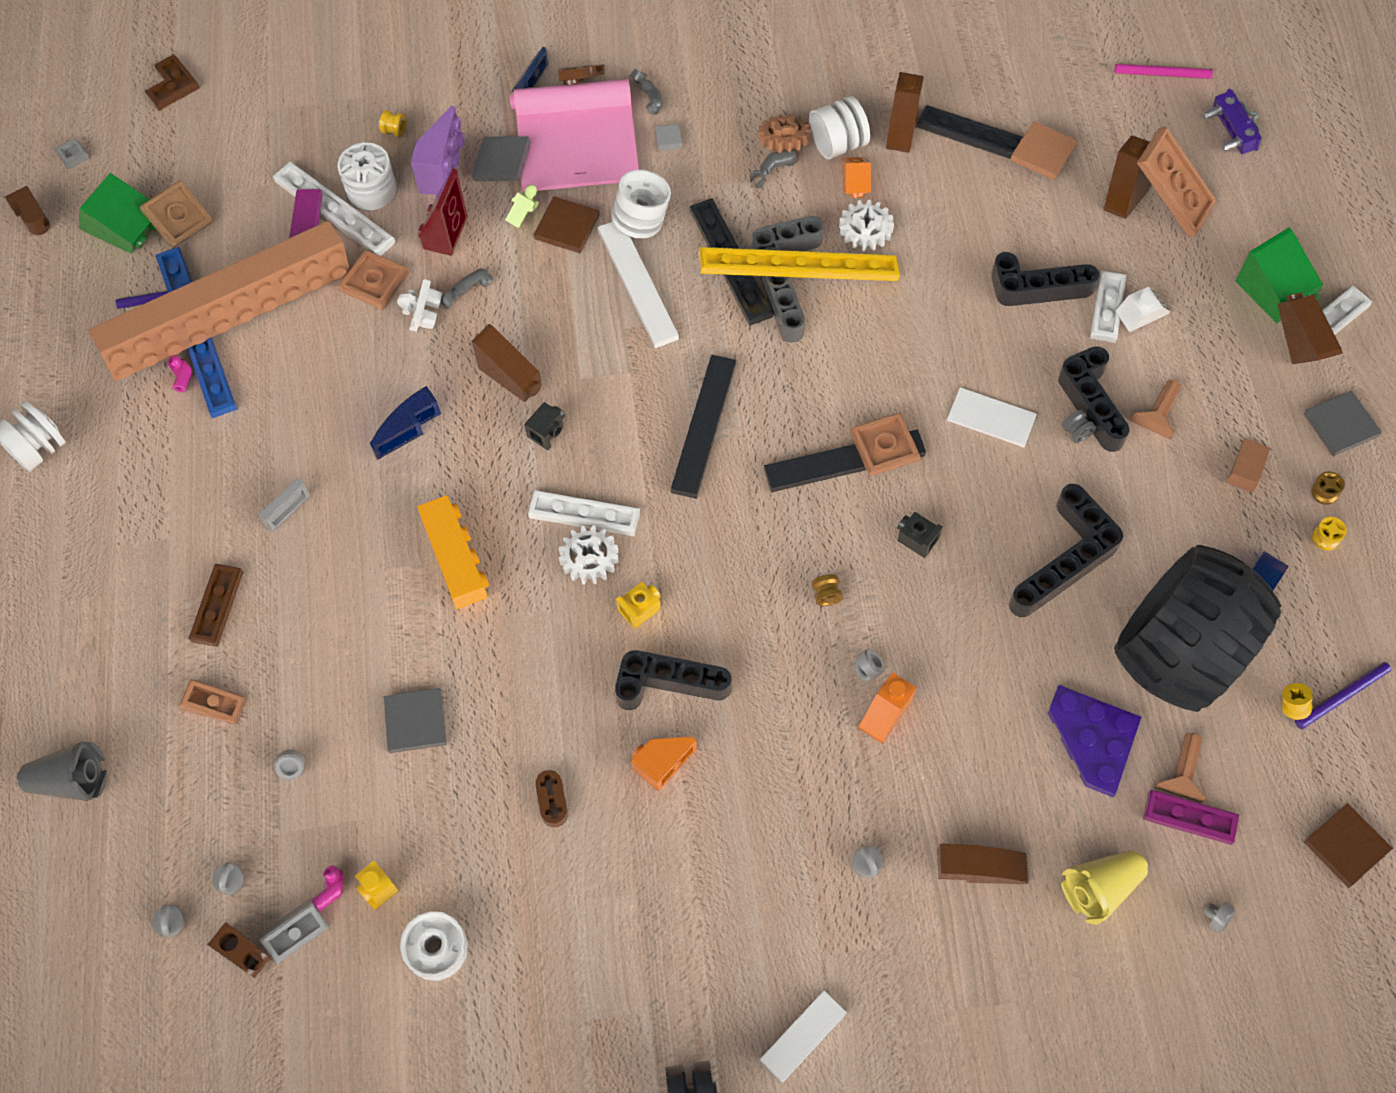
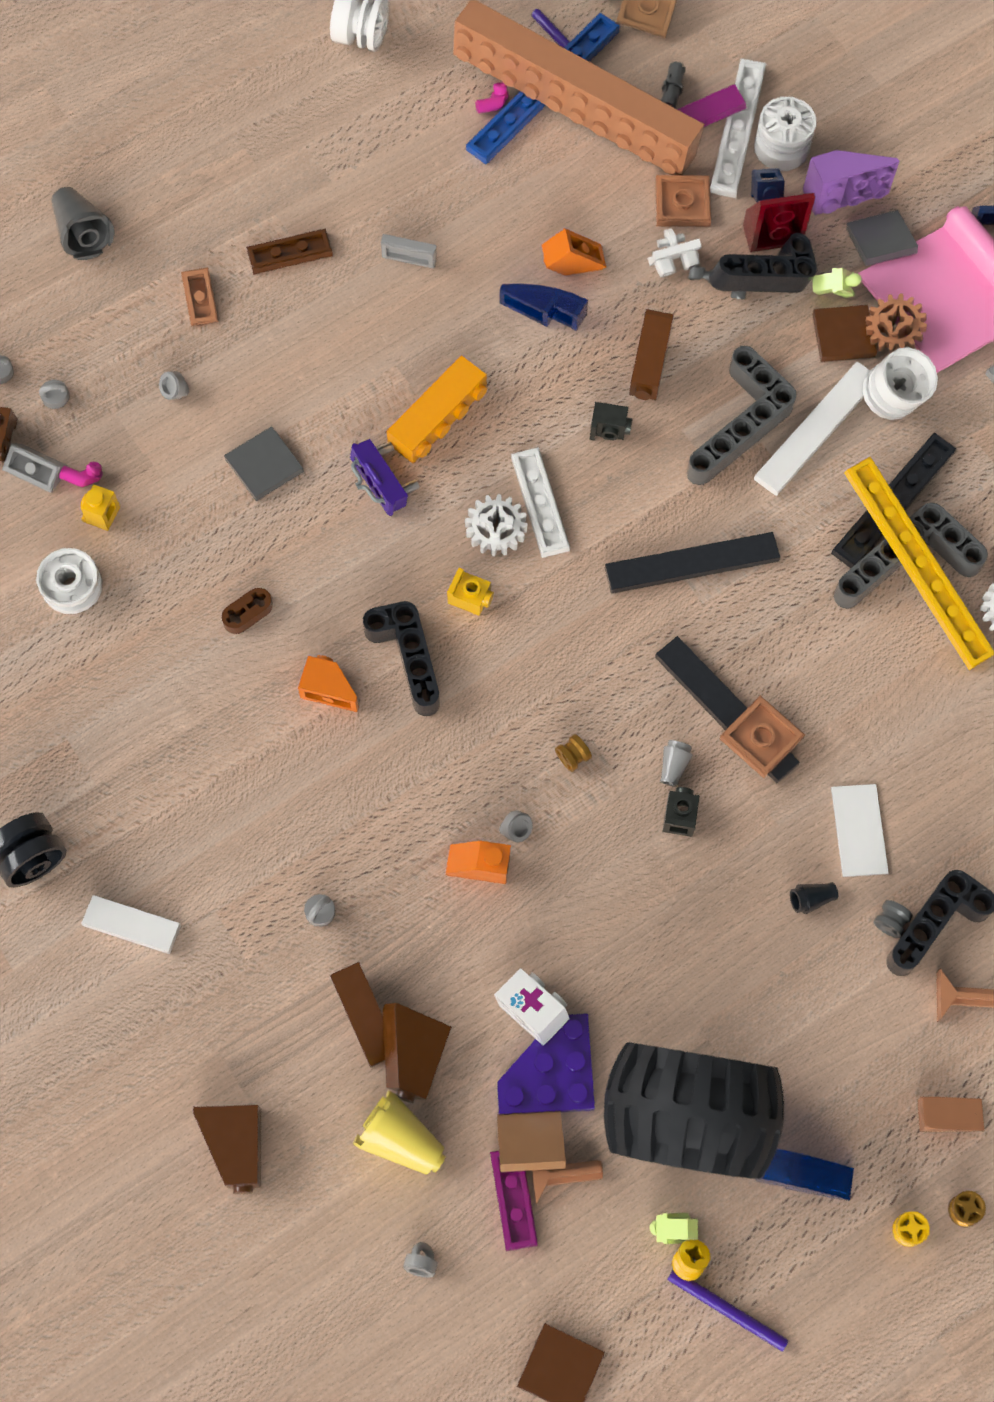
camera: 60 degrees right, 5 degrees up
(264, 235) = (673, 86): none -> dark grey pin
(371, 381) = (572, 254): none -> orange slope
(392, 123) = (862, 125): yellow wheel -> none
(411, 210) = (767, 188): none -> dark blue brick
(487, 628) = (379, 476): none -> dark purple piece
(490, 235) = (783, 272): none -> black beam
(586, 172) = (886, 321): none -> nougat gear
(589, 302) = (747, 422): none -> dark grey beam
(872, 517) = (675, 760): none -> light grey cone
(1034, 474) = (810, 897): none -> black cone
(1036, 838) = (411, 1050): none -> reddish brown slope
(1037, 722) = (532, 1006): none -> white brick
(1053, 1030) = (234, 1143): none -> reddish brown slope
(1073, 558) = (735, 970): black beam -> none
(1153, 777) = (531, 1141): none -> medium nougat tile
(1268, 701) = (674, 1228): none -> yellowish green piece

